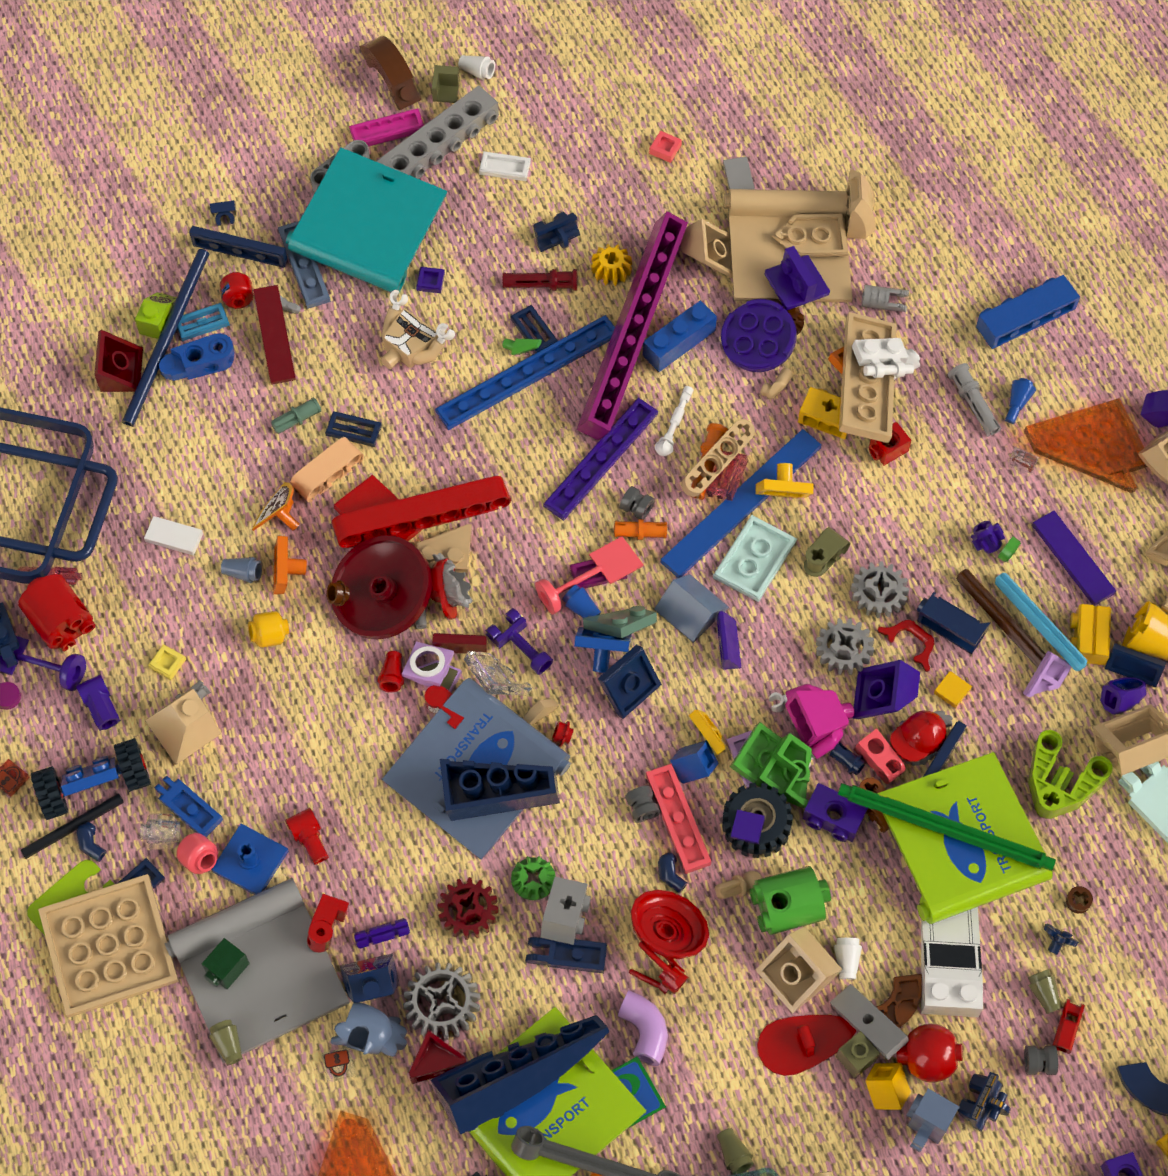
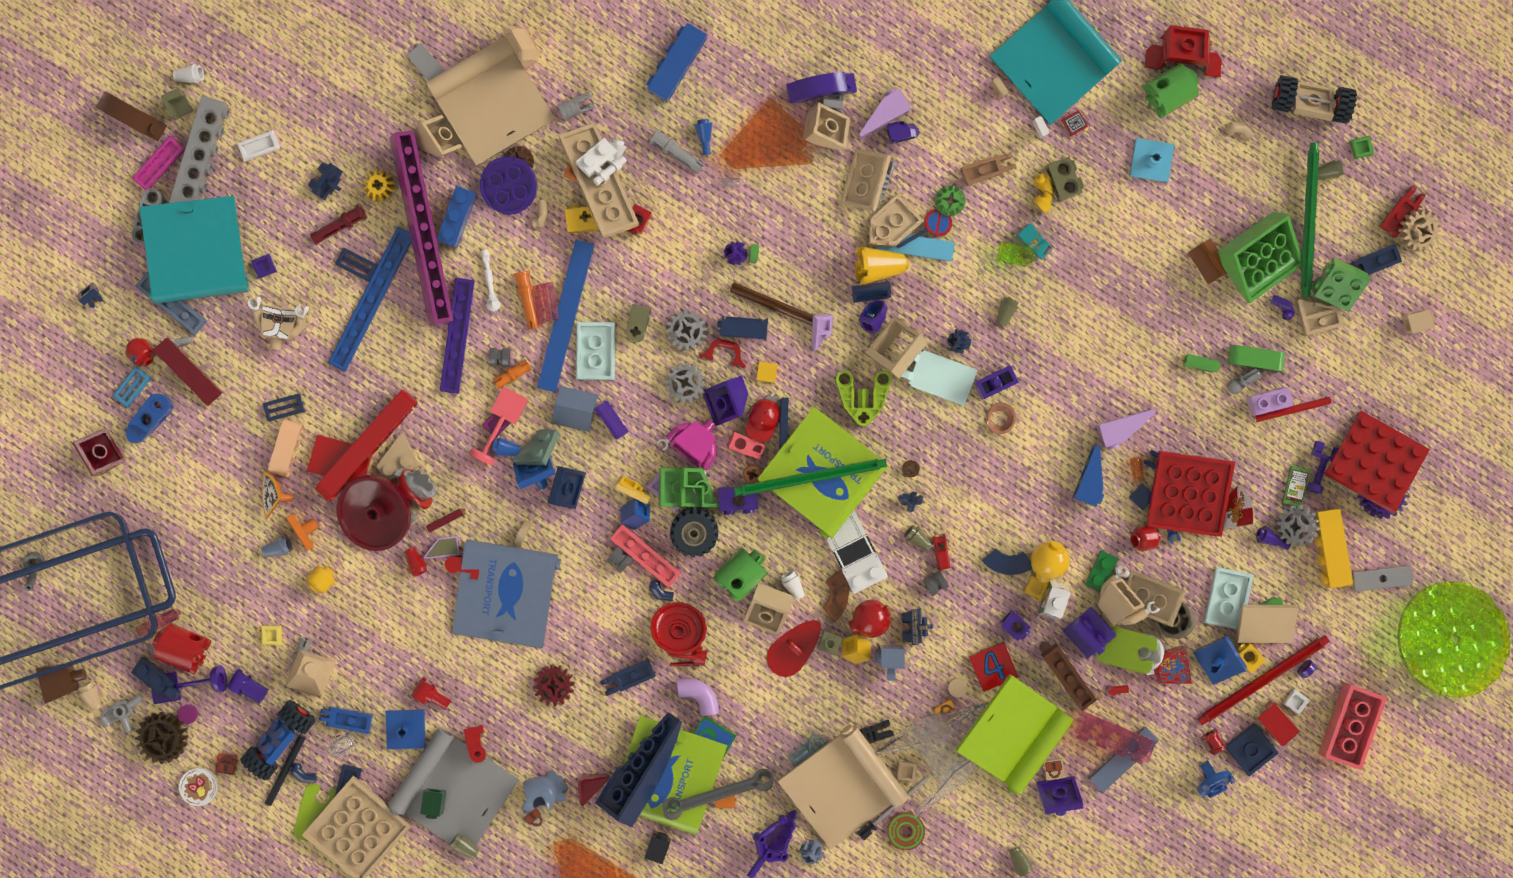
camera: 30 degrees left, 25 degrees up
(154, 314) = (98, 399): lime slope -> none
(165, 337) = (117, 413): dark blue piece -> none
(173, 535) = (218, 549): white tile -> none
(197, 853) = (372, 746): coral head -> none
(238, 246) = (119, 318): dark blue tile -> none
(296, 415) = (240, 420): sand green axle -> none
(337, 593) = (349, 533): reddish brown plate -> none
(370, 978) = (524, 762): dark blue torso -> none
(382, 933) = (512, 727): dark purple axle -> none
(431, 677) = (445, 552): lavender piece -> none
(463, 1013) = (564, 748): light grey gear -> none
(494, 675) = (480, 529): clear wing -> none
(495, 788) = (523, 609): dark blue wedge -> none
(521, 346) = (355, 283): bright green bar -> none
(533, 890) = (588, 637): bright green gear -> none
(540, 661) = (502, 501): dark purple bar -> none
(562, 733) = (544, 541): red plate -> none
(564, 911) = (618, 665): light grey brick -> none
(665, 146) = (360, 67): coral plate -> none
(720, 459) = (530, 296): tan beam -> none
(735, 1153) = (789, 737): olive cone -> none
(737, 885) = (710, 569): tan axle -> none
(747, 826) = (692, 546): dark purple tile -> none
(783, 485) = (587, 291): yellow tile -> none
(796, 280) = (511, 130): dark purple bracket -> none
(814, 235) = (502, 83): tan tile -> none
(848, 759) = (727, 457): dark blue pin -> none
(860, 1012) = (817, 617): light grey tile -> none
(1041, 622) = (798, 296): medium azure axle -> none
(1074, 558) = (796, 234): dark purple tile -> none
(1092, 632) = (834, 286): yellow brick -> none

